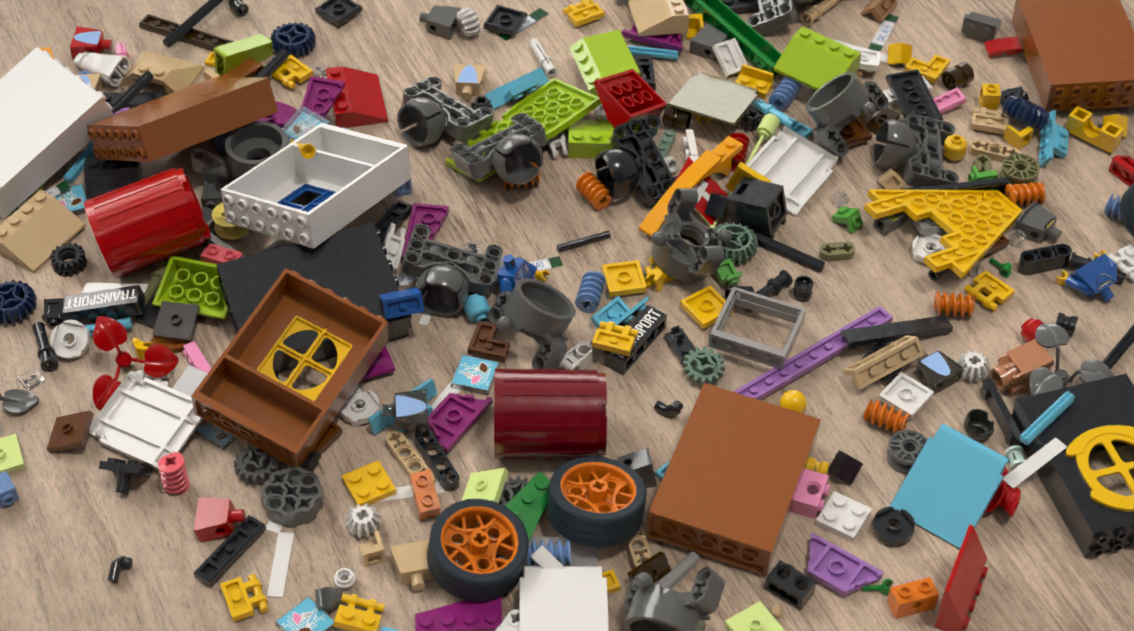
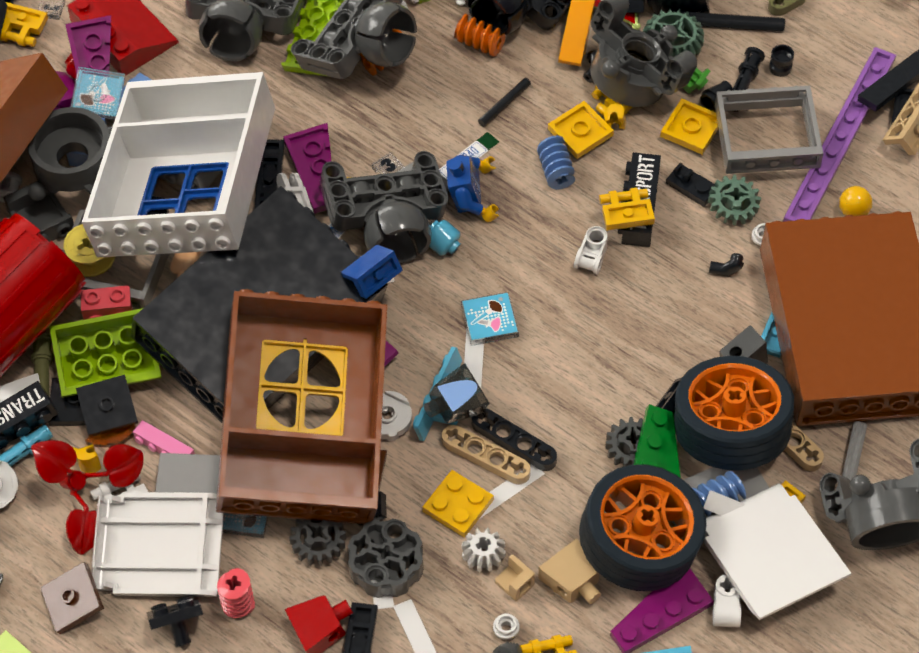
camera: 25 degrees left, 10 degrees up
(306, 150) = (150, 128): yellow piece -> none
(424, 494) = (535, 488): orange brick -> none
(455, 417) = (504, 379): magenta wing -> none
(485, 345) = (481, 279): reddish brown plate -> none
(486, 485) = (593, 451): yellowish green plate -> none
(538, 313) = (528, 216): dark grey piece -> none
(549, 413) = (621, 333): dark red container -> none
(617, 312) = (600, 178): medium azure bracket -> none
(656, 566) = (827, 461): dark brown plate -> none

